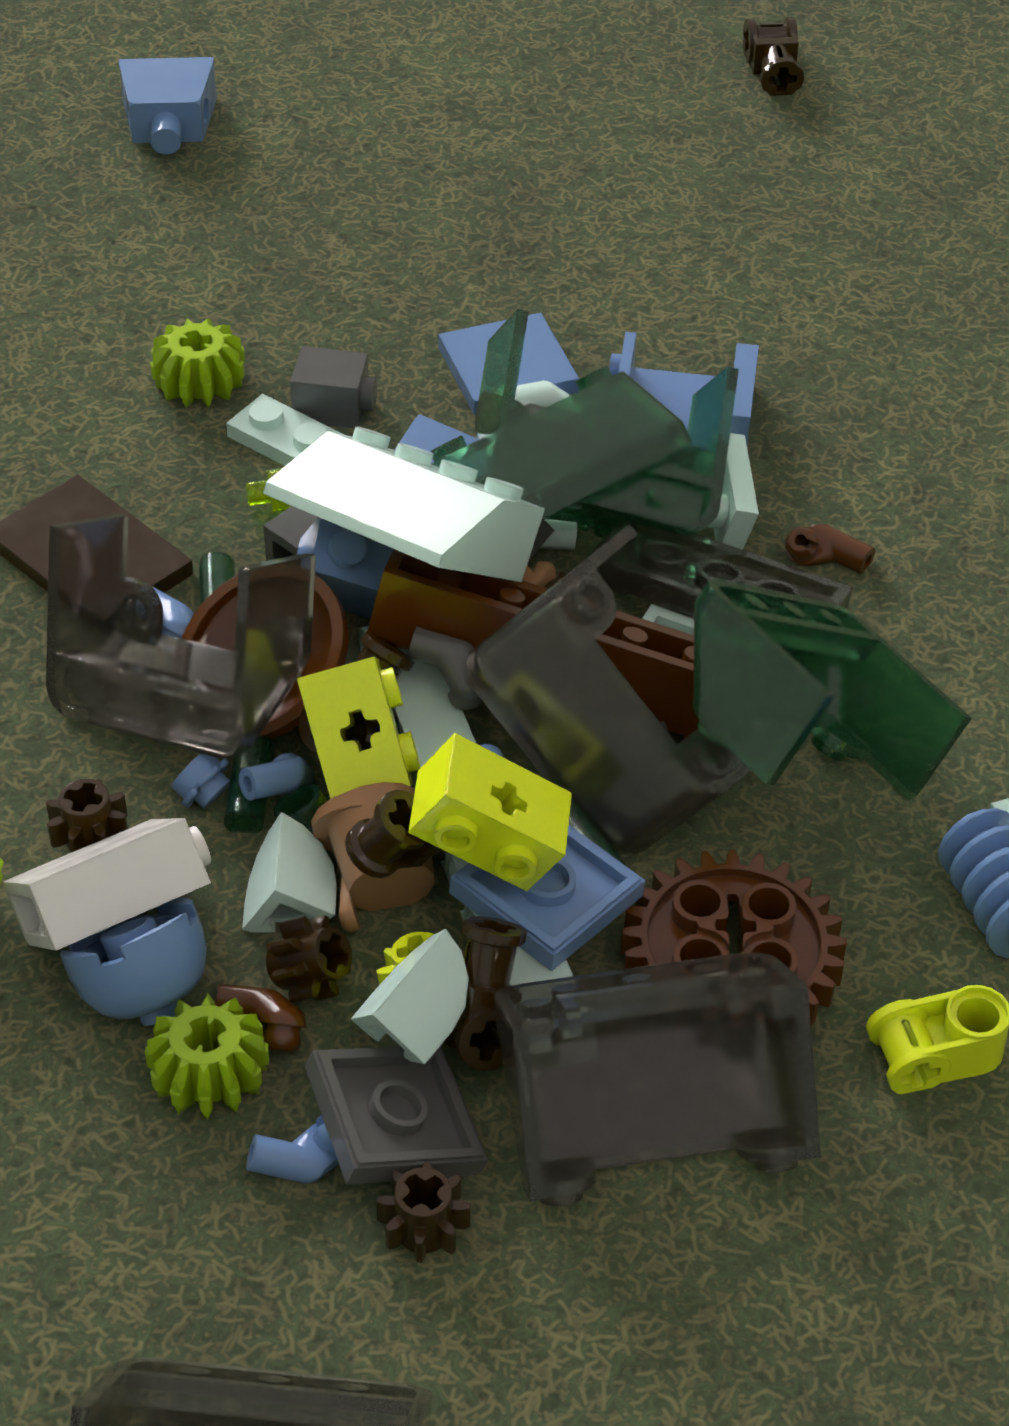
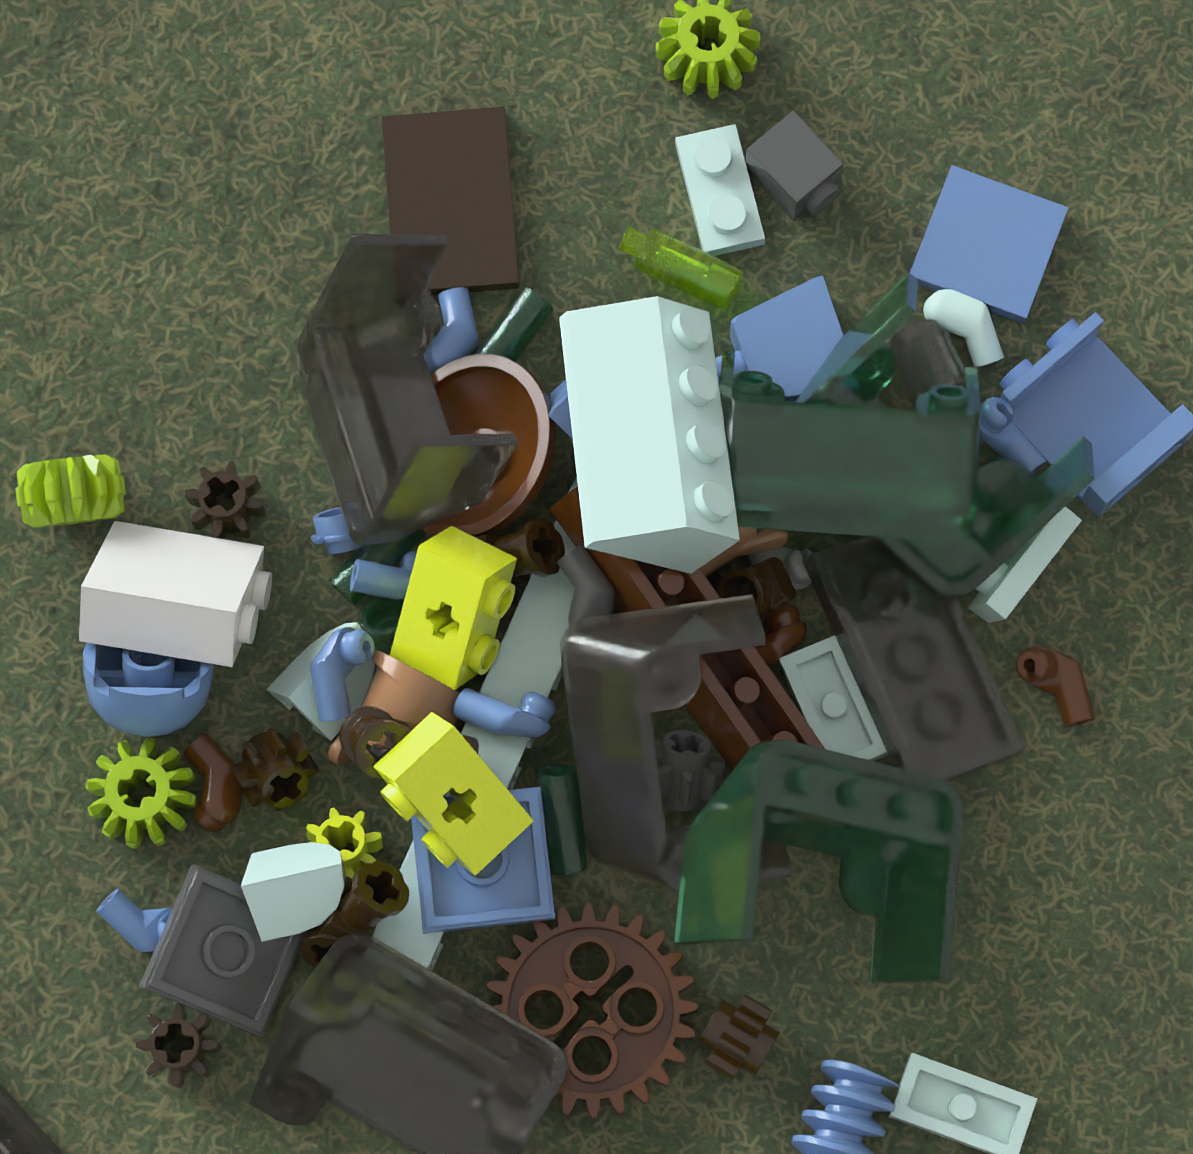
camera: 45 degrees right, 30 degrees up
(293, 844) = (332, 666): none -> medium blue arm
(862, 880) = (739, 1037): none -> dark brown gear

